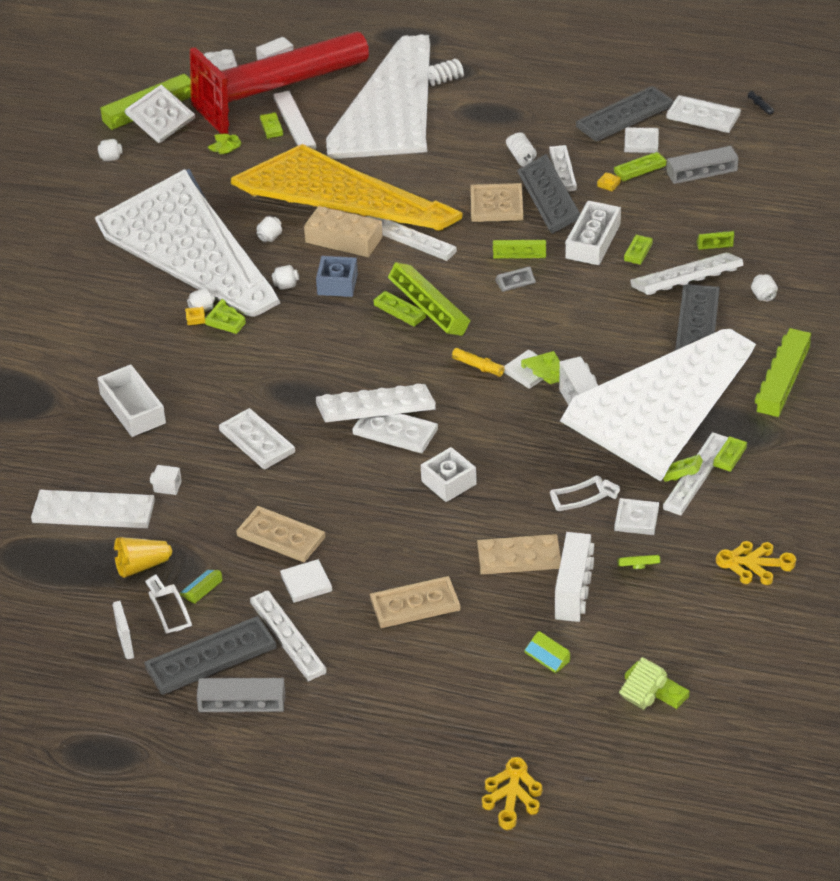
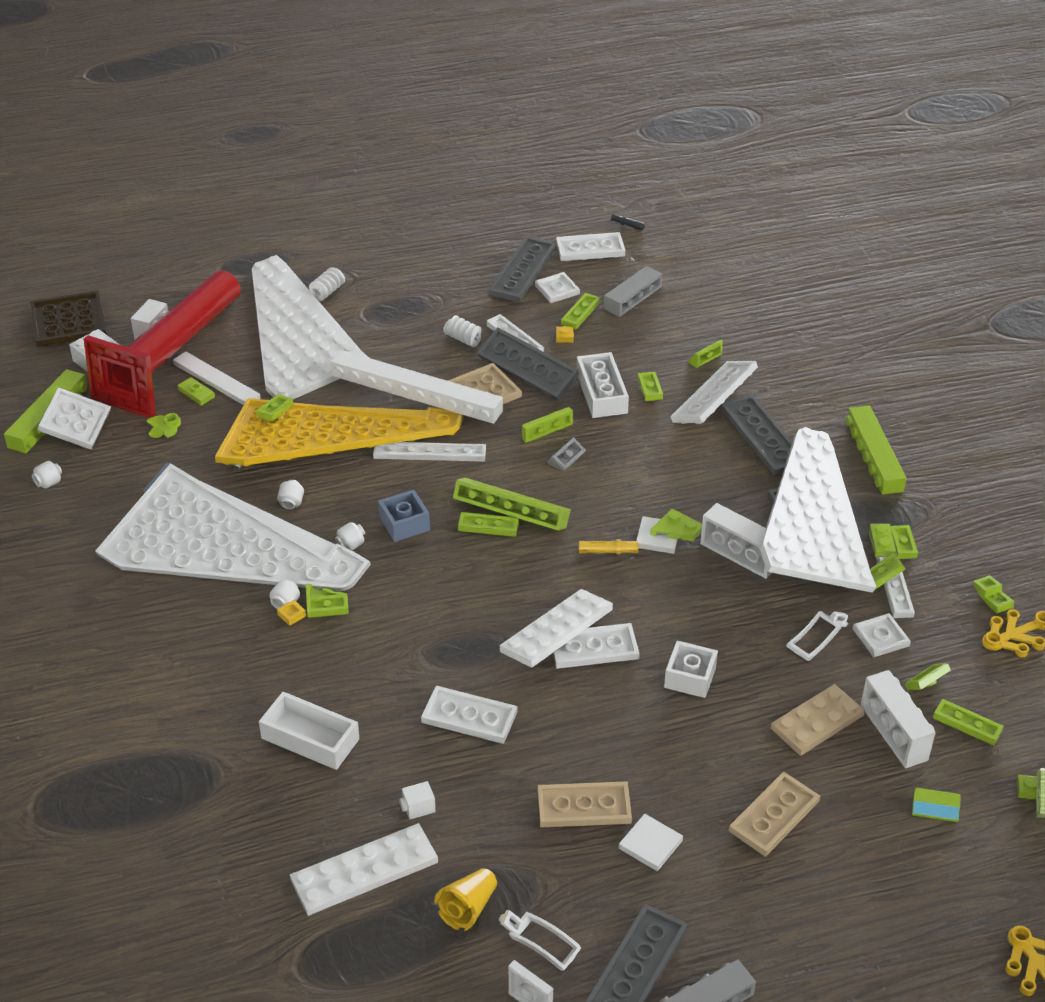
camera: 35 degrees left, 0 degrees up
(202, 585) = (552, 898): lime slope -> none
(224, 32) = (66, 317): none -> dark brown plate
(288, 635) = (686, 909): white tile -> none
(309, 157) = (274, 407): none -> lime plate
(343, 231) = (367, 469): tan brick -> none
(436, 180) = (417, 386): none -> white brick
(637, 607) = (968, 722): none -> lime plate
(710, 444) = (882, 540): none -> lime plate
(764, 287) = (788, 380): white head -> none
(767, 525) = (992, 594): none -> lime slope

